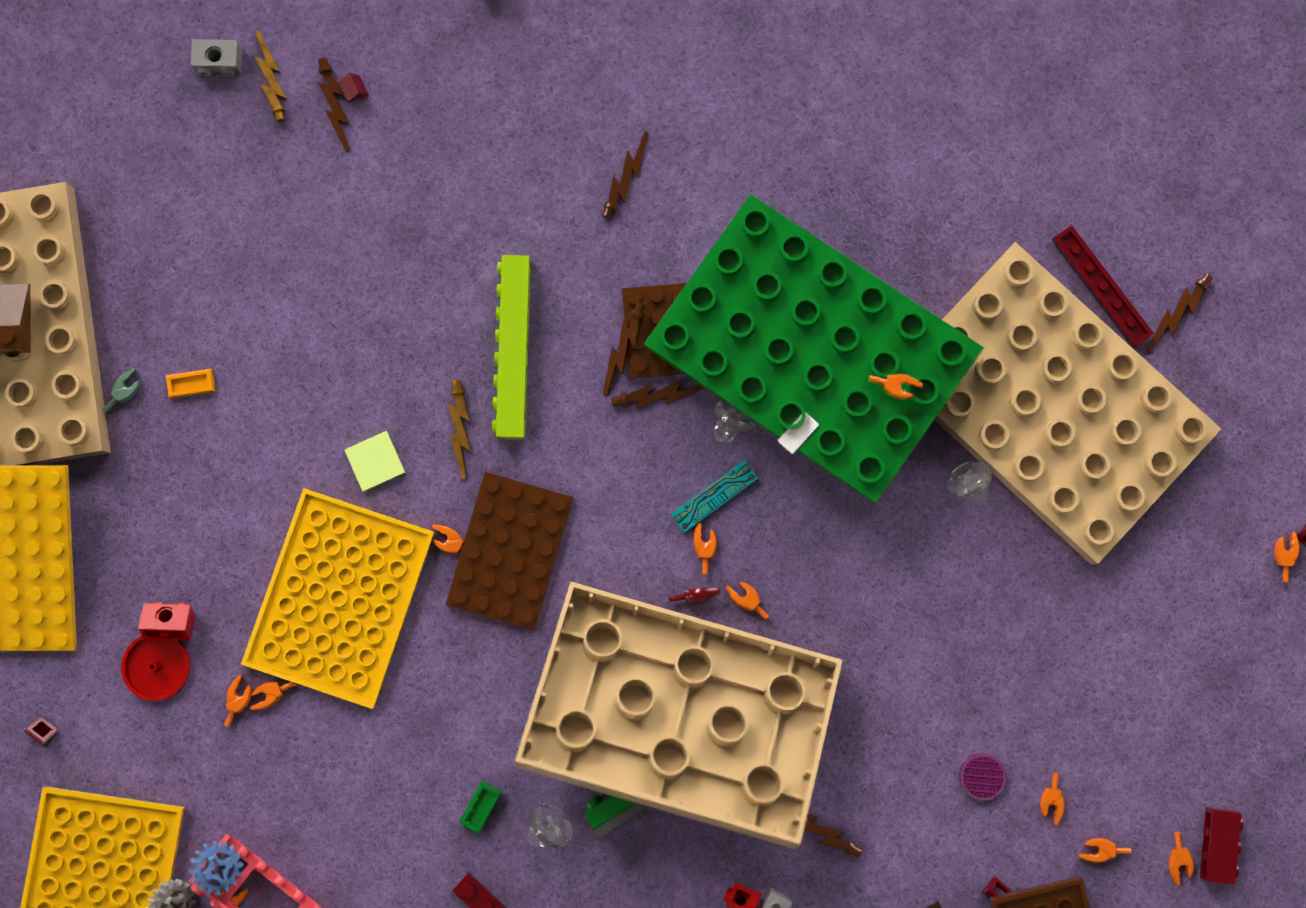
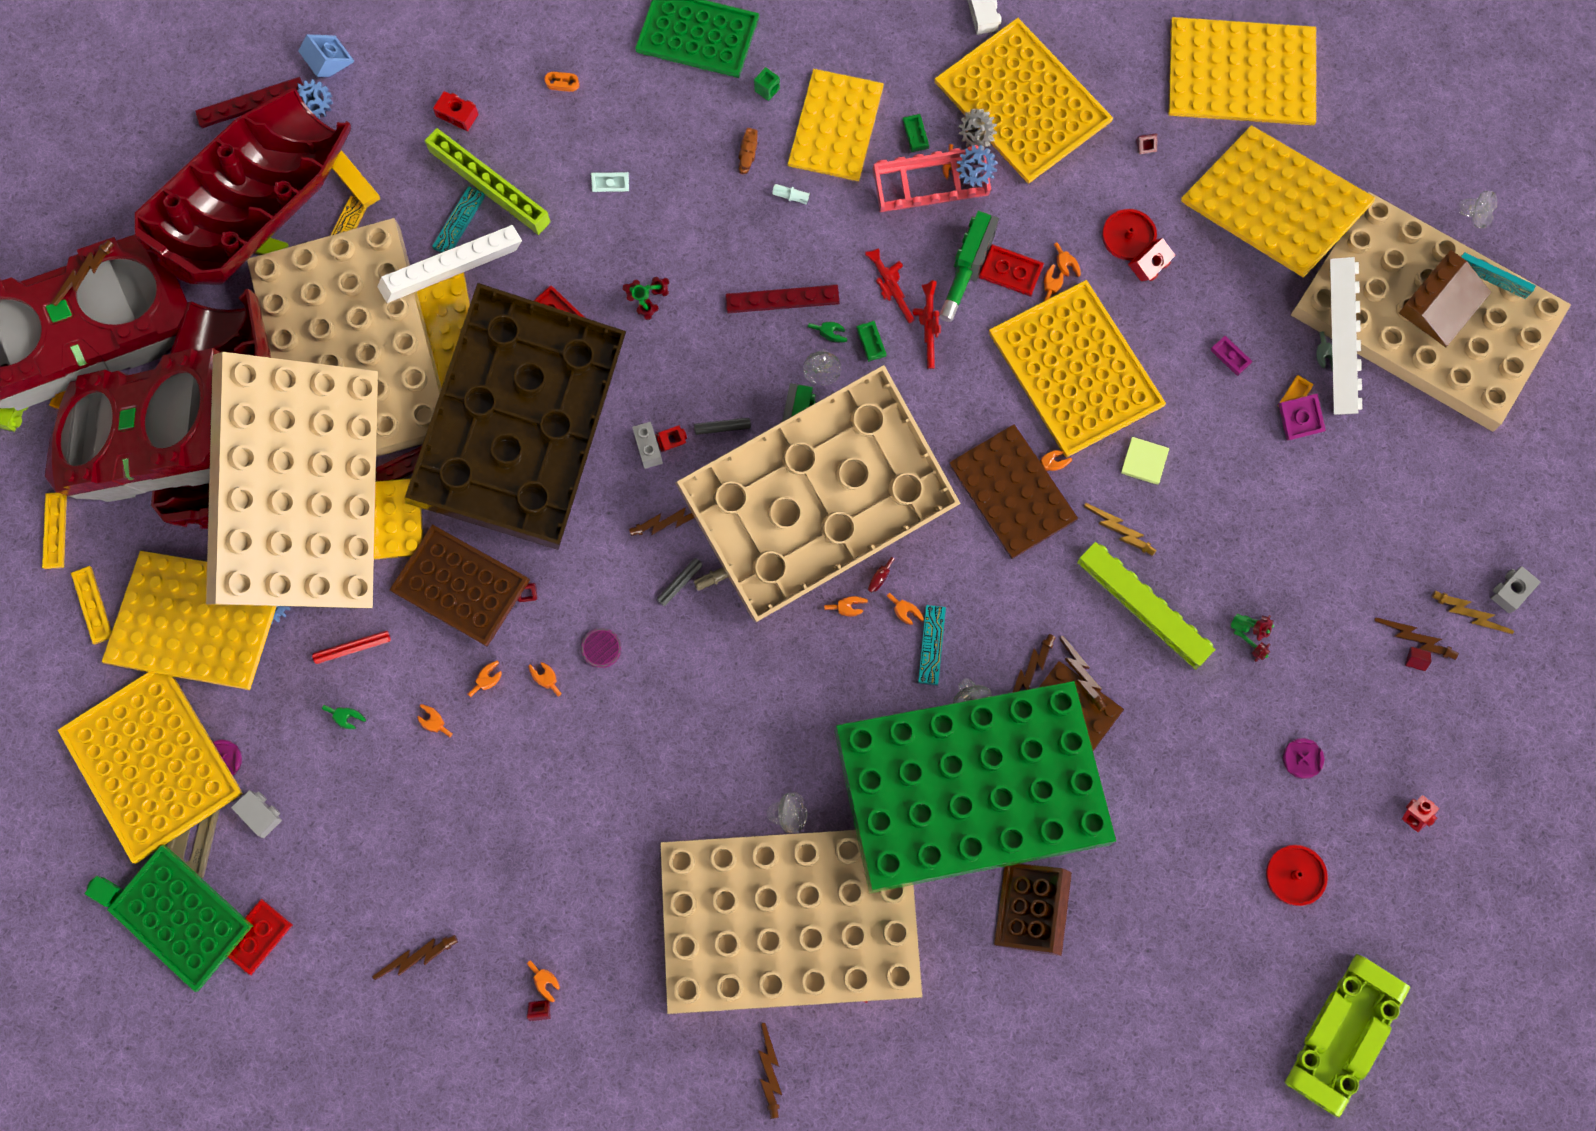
camera: 135 degrees right, 10 degrees down
(97, 381) = (1344, 335): none -> white brick
(201, 470) = (1231, 355): none -> magenta plate
(209, 359) = (1302, 417): none -> magenta plate
(291, 743) = (1011, 270): none -> red tile
(320, 787) = (969, 260): none -> green piece
(408, 840) = (890, 287): none -> red piece
(416, 766) = (930, 320): none -> red piece
(451, 229) = (1261, 628): none -> plant
(507, 857) = (827, 330): none -> green hand
(528, 111) = (1303, 758): none -> magenta tile
(622, 188) = (1193, 771): reddish brown piece -> none
(633, 39) = (1296, 875): none -> red piece
(686, 866) = (722, 426): none -> dark grey axle
(794, 438) = (925, 712): white sticker -> none
(839, 742) = (710, 579): none -> dark tan axle
(860, 216) = (1033, 908): none -> reddish brown slope
(862, 765) = (678, 583): none -> dark grey axle
(894, 382) = (903, 804): orange hand -> none
(1102, 286) = (836, 1034): dark red plate -> none
(1221, 845) = (416, 753): dark red brick -> none

